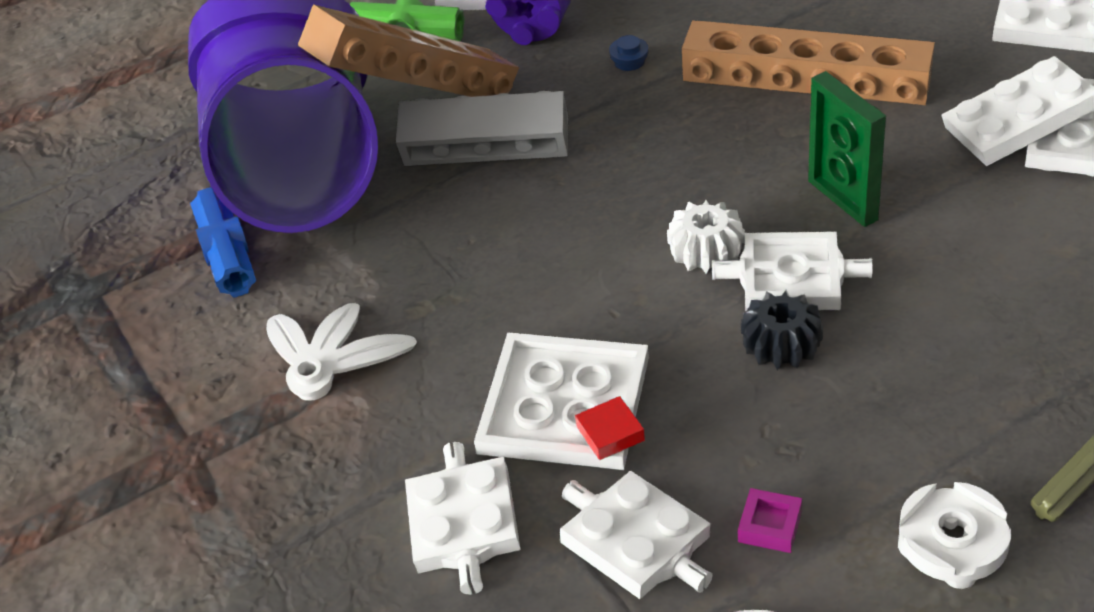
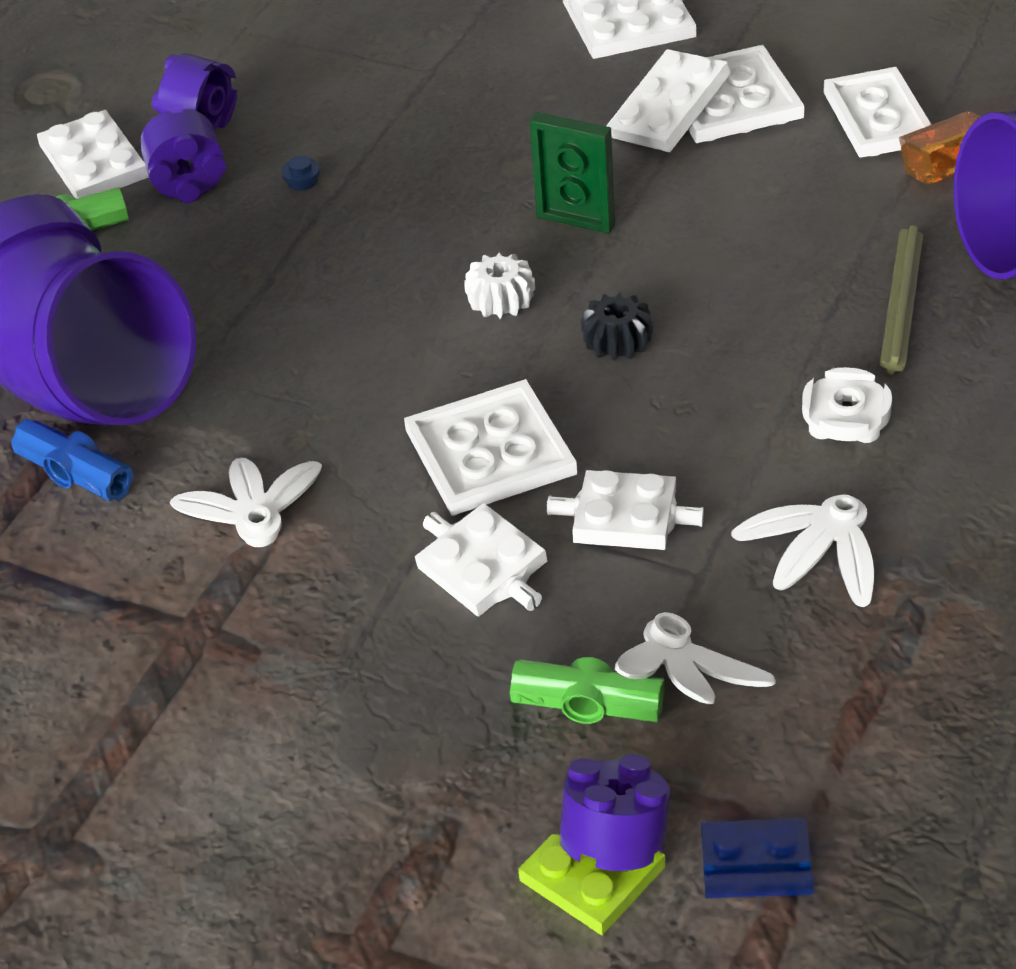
camera: 35 degrees left, 0 degrees up
(404, 54) = (149, 231): medium nougat brick -> none
(482, 128) = (247, 271): light grey brick -> none
(610, 427) = (553, 444): red tile -> none
(770, 520) = (716, 455): magenta plate -> none
(790, 57) = (459, 125): medium nougat brick -> none
(793, 262) = (584, 277): white plate -> none

